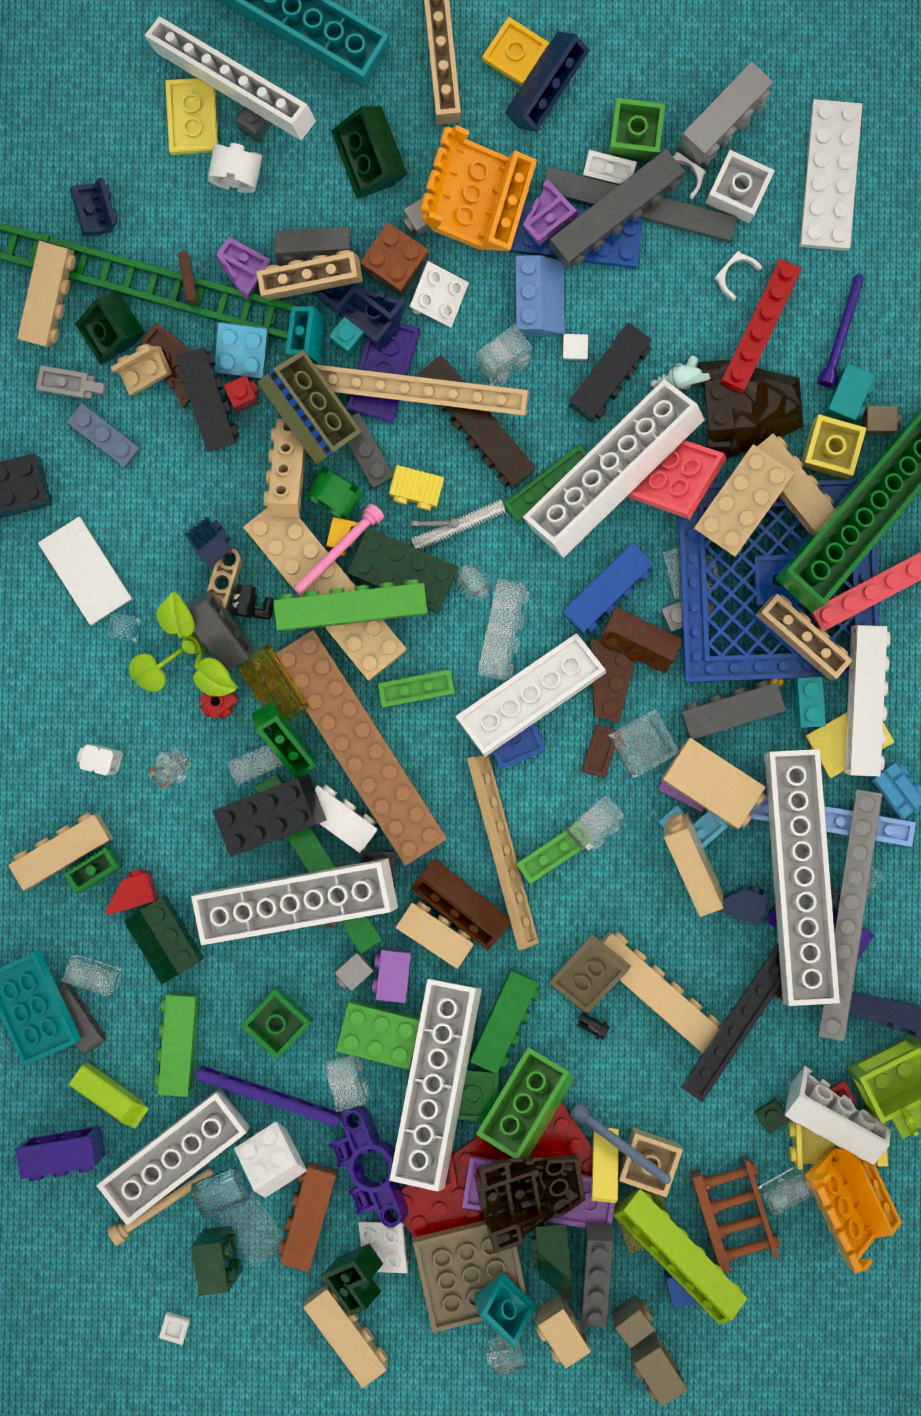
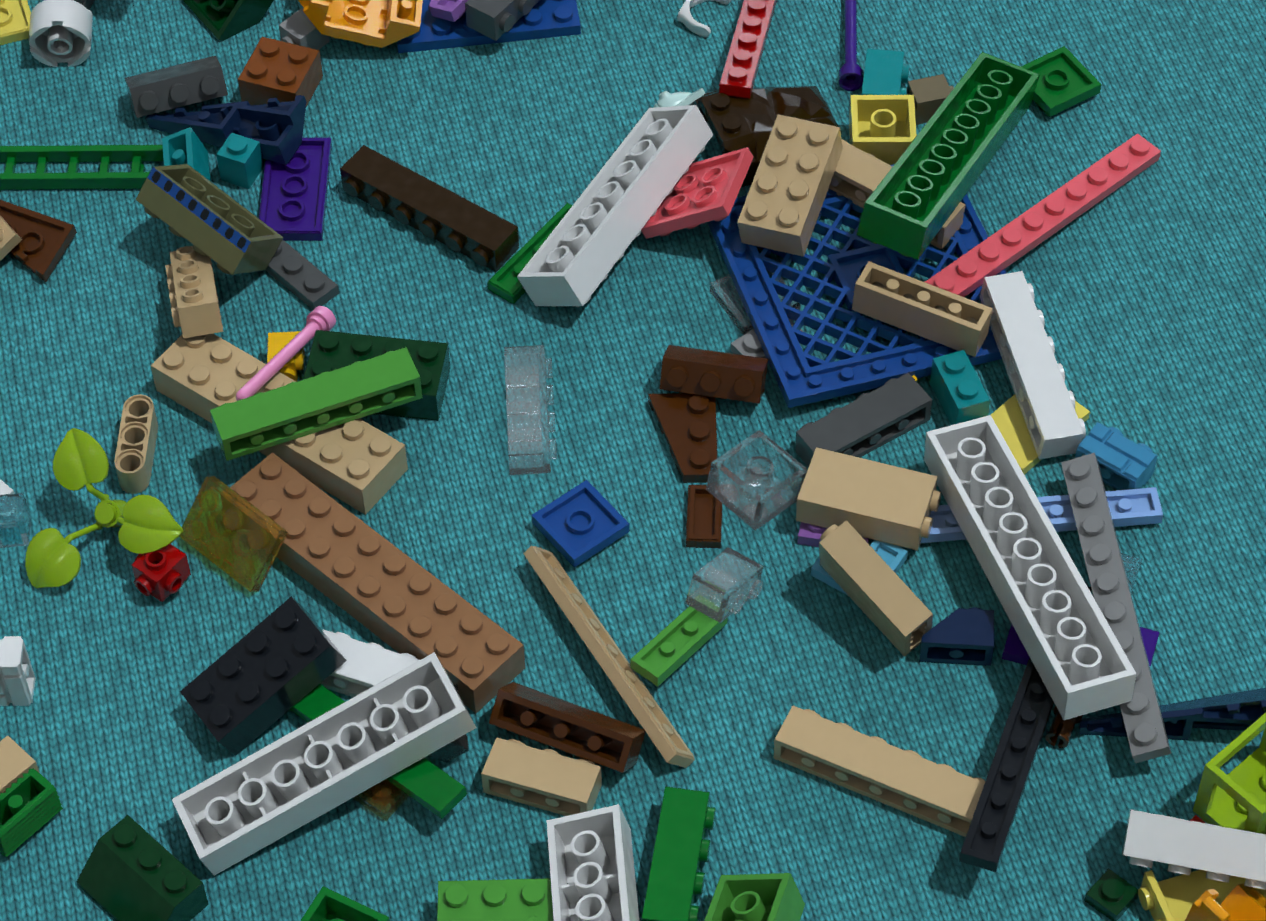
camera: 20 degrees left, 35 degrees down
(133, 892) = (79, 834): red slope -> none
(170, 768) = (108, 663): clear brick -> none
(188, 278) = (24, 140): reddish brown tile -> none
(206, 398) = (73, 252): black brick -> none
(209, 541) = (108, 393): dark blue brick -> none
(218, 631) = (137, 476): dark grey brick -> none
(241, 265) = (90, 122): medium lavender wing -> none
(241, 350) = (106, 202): medium azure plate -> none
(242, 393) = (118, 243): red brick -> none
(245, 602) = (171, 459): black piece -> none
(254, 765) = (224, 628): clear brick -> none
(283, 739) = (258, 572): green brick -> none
(310, 275) = (178, 98): tan brick -> none
(335, 492) = (263, 306): green brick -> none
(353, 971) = (436, 853): light grey brick -> none
(392, 975) = (495, 842): medium lavender brick -> none
(416, 488) = (370, 287): light yellow brick -> none
(416, 688) = (431, 500): bright green plate -> none
(426, 390) = (360, 175): tan plate -> none
(438, 294) = (343, 100): white hinge -> none
(439, 533) = (446, 311): white axle -> none
(452, 523) = (380, 329): light grey hinge -> none
(473, 582) = (473, 366): clear head -> none
(503, 356) = (442, 130): clear brick -> none
(530, 694) = (586, 463): white plate -> none
(539, 296) = (468, 76): medium blue slope -> none
(575, 347) = (530, 116): white tile -> none
(589, 974) = (778, 761): dark tan plate -> none
(593, 1026) = (809, 841): black pin -> none
(607, 588) = (659, 323): blue brick -> none
(610, 372) = (581, 126): black brick -> none

